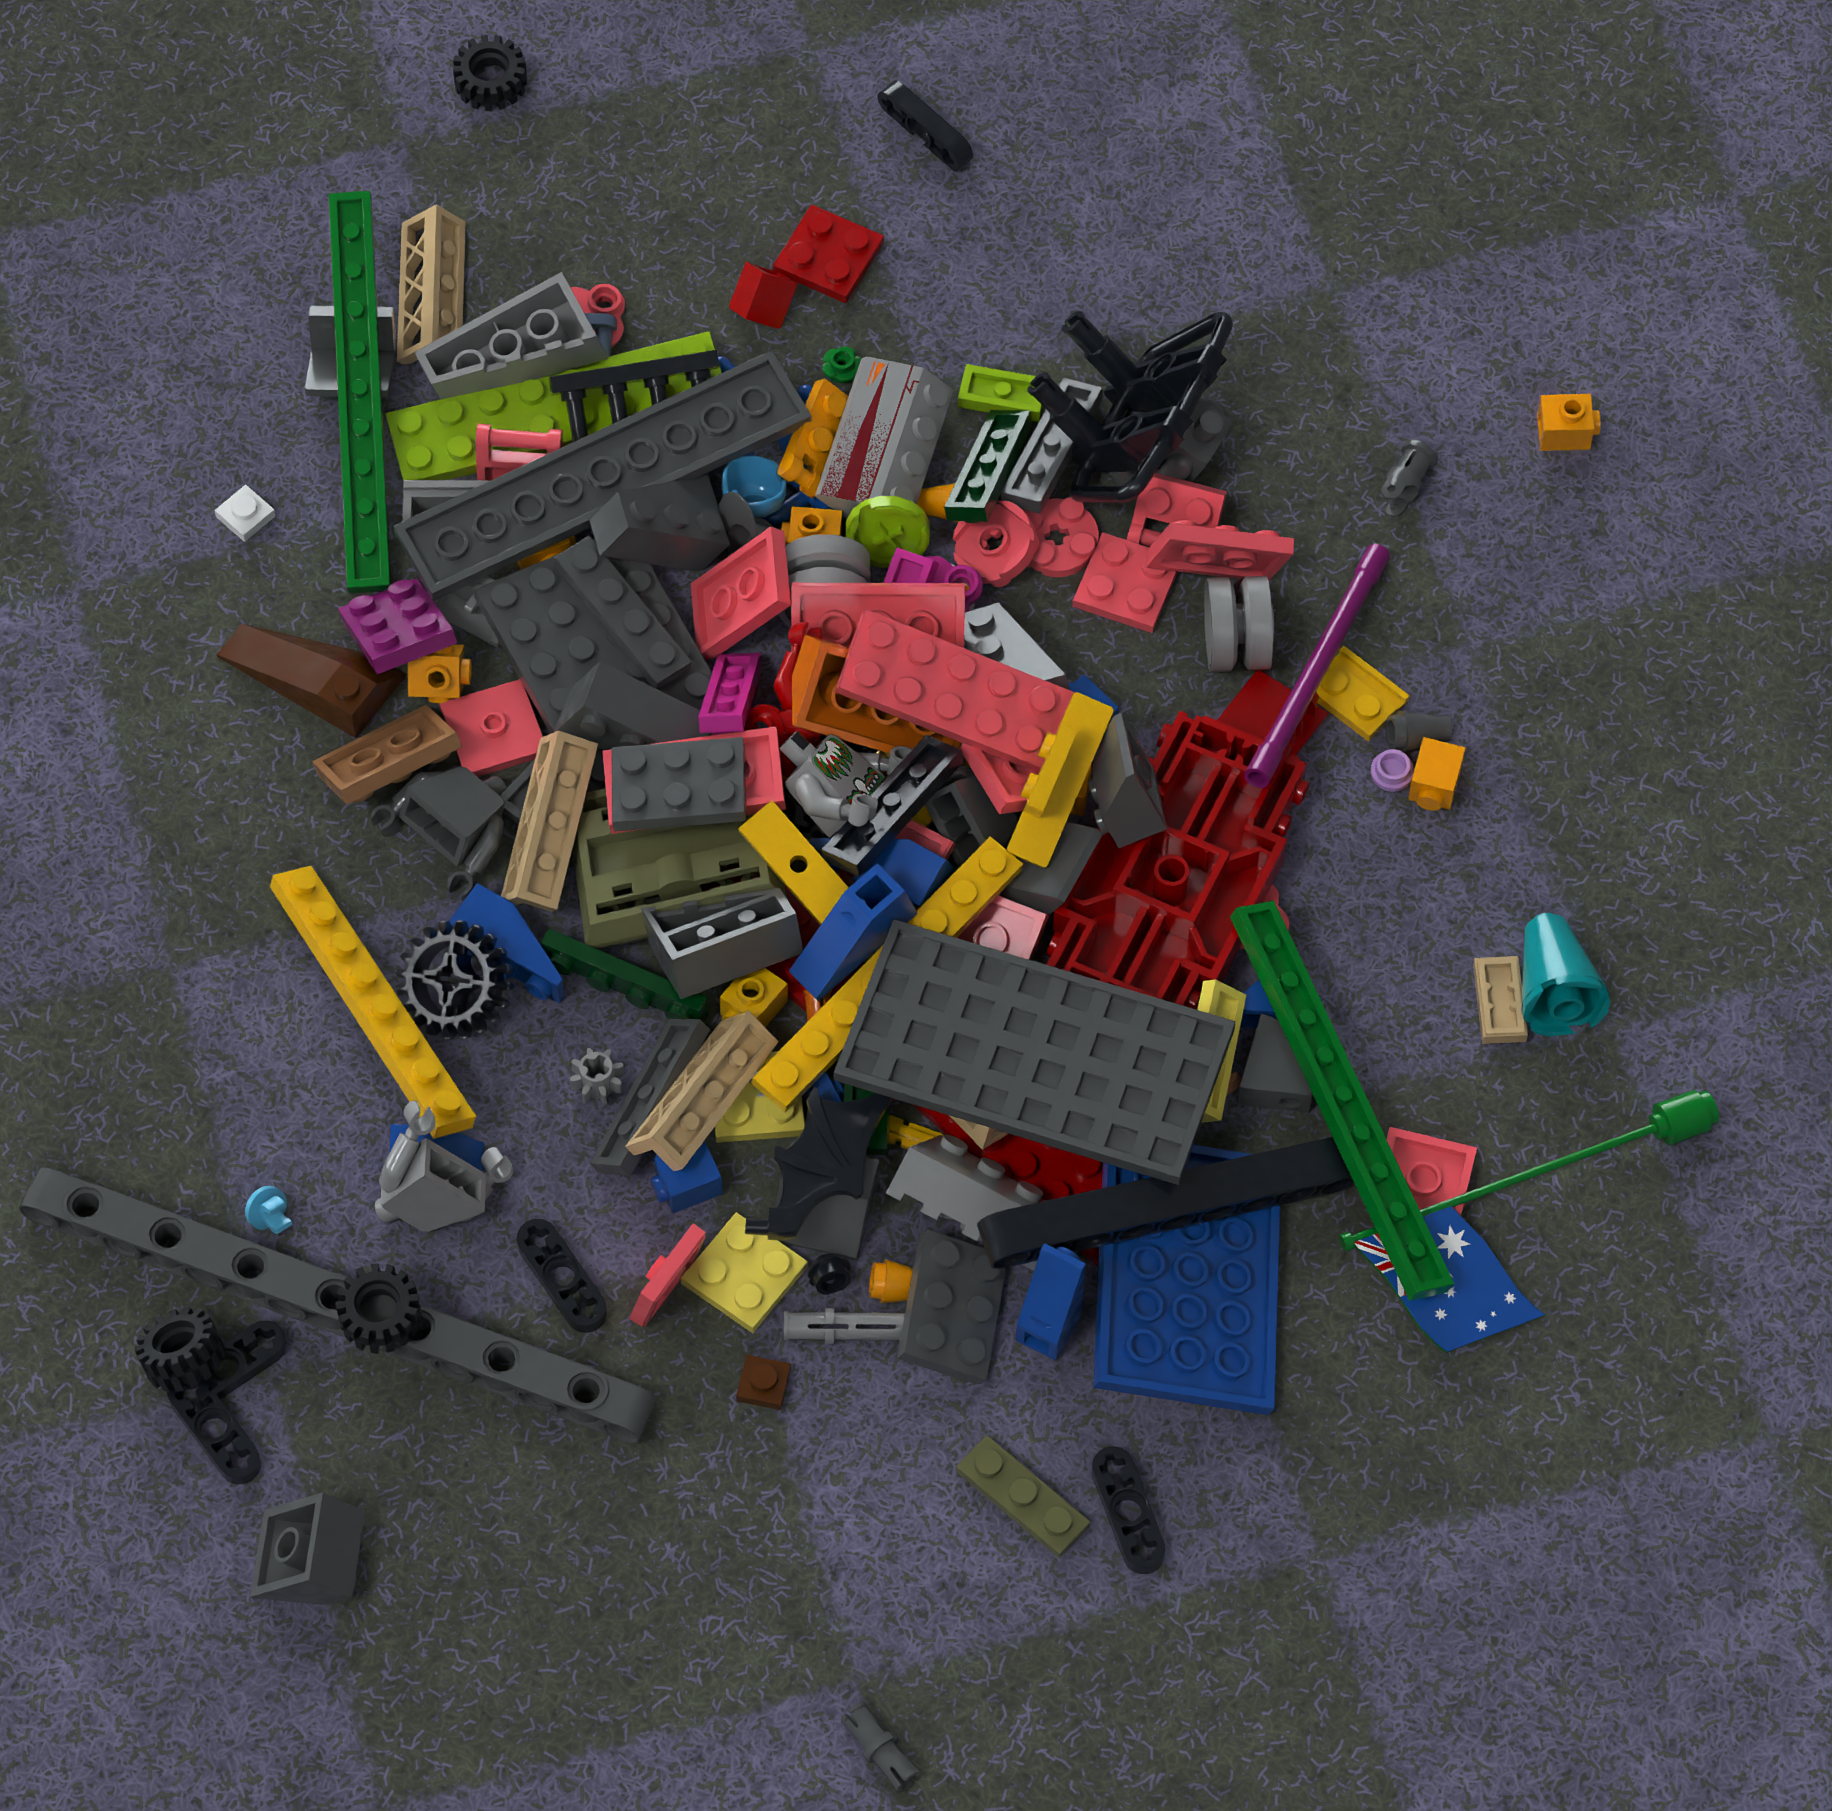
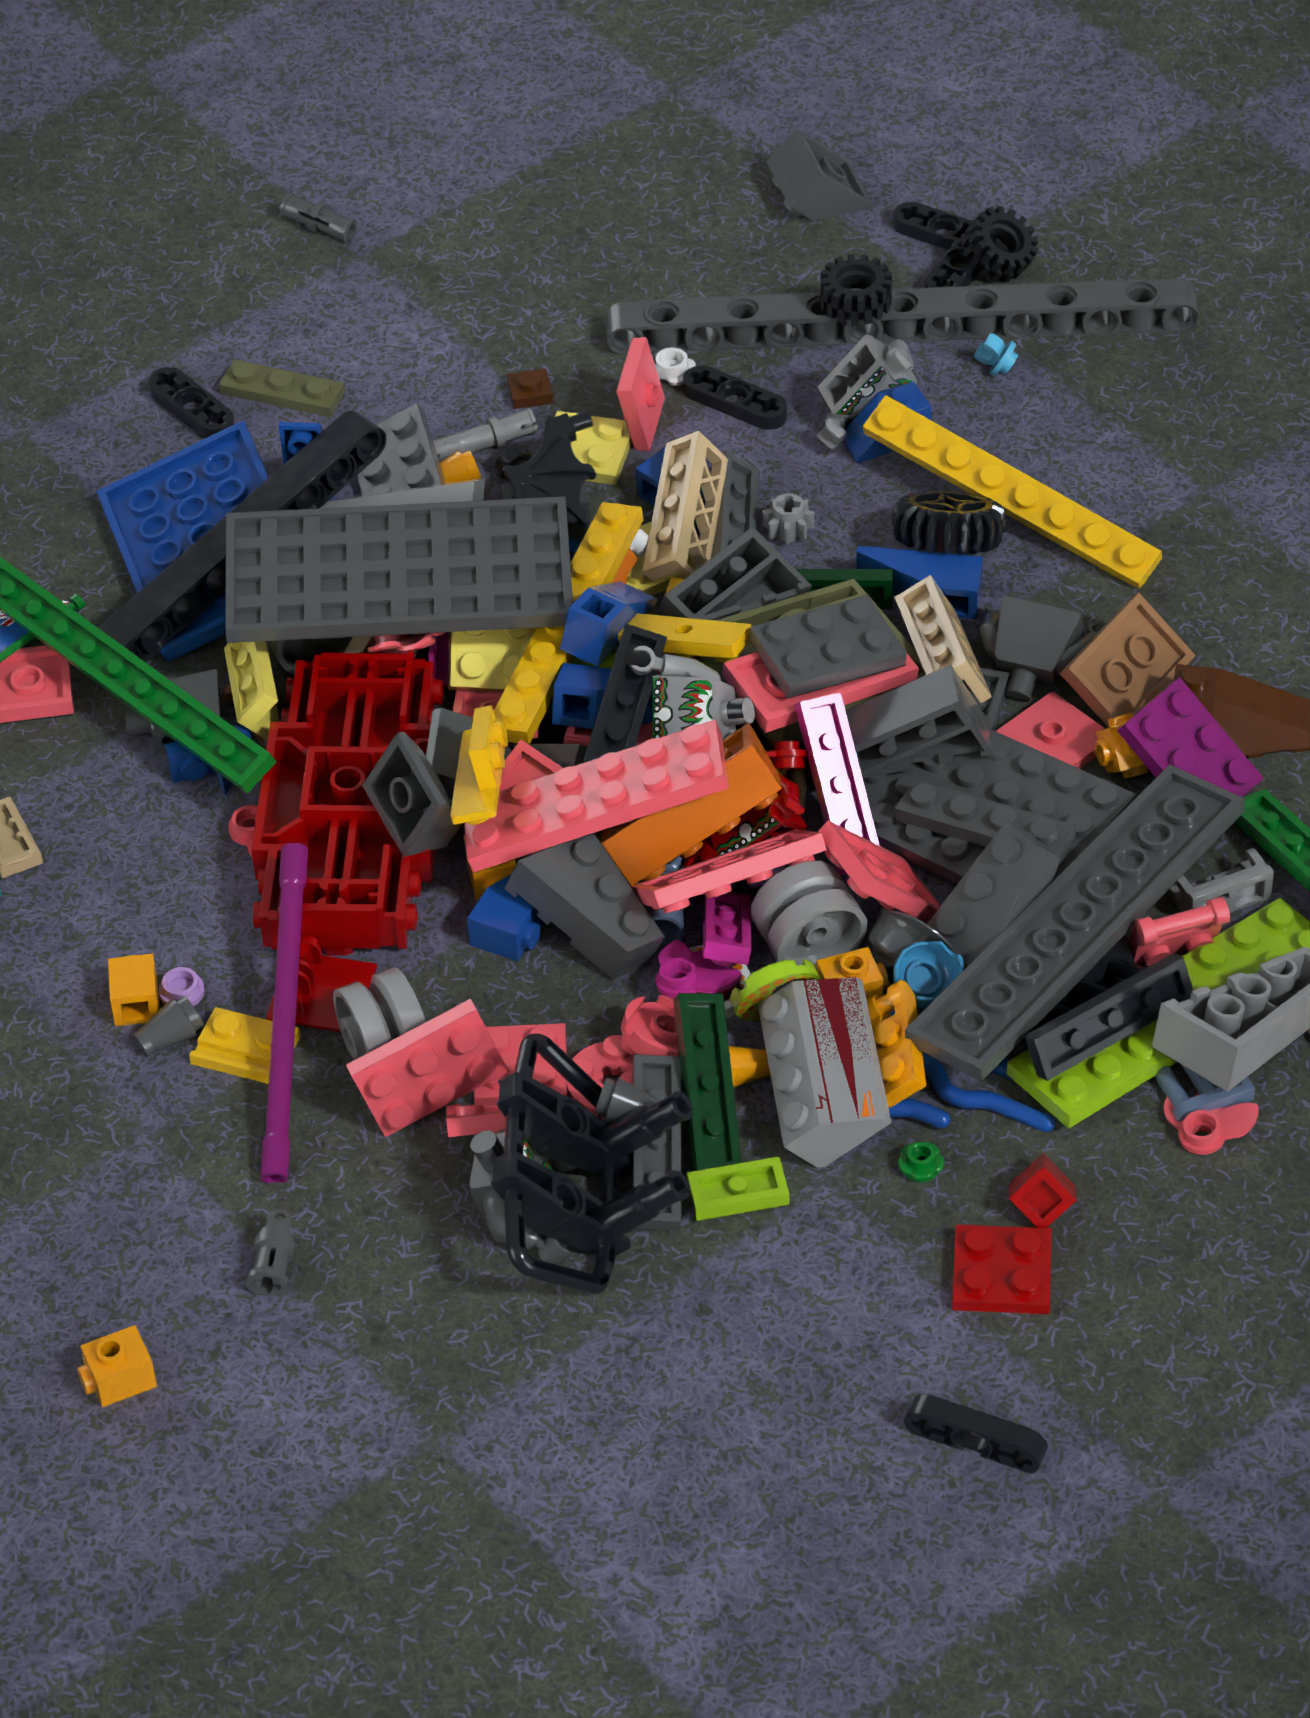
camera: 160 degrees right, 15 degrees down
(604, 1335) = (672, 364): none -> white plate
(1070, 450) = (620, 1099): none -> dark grey cone

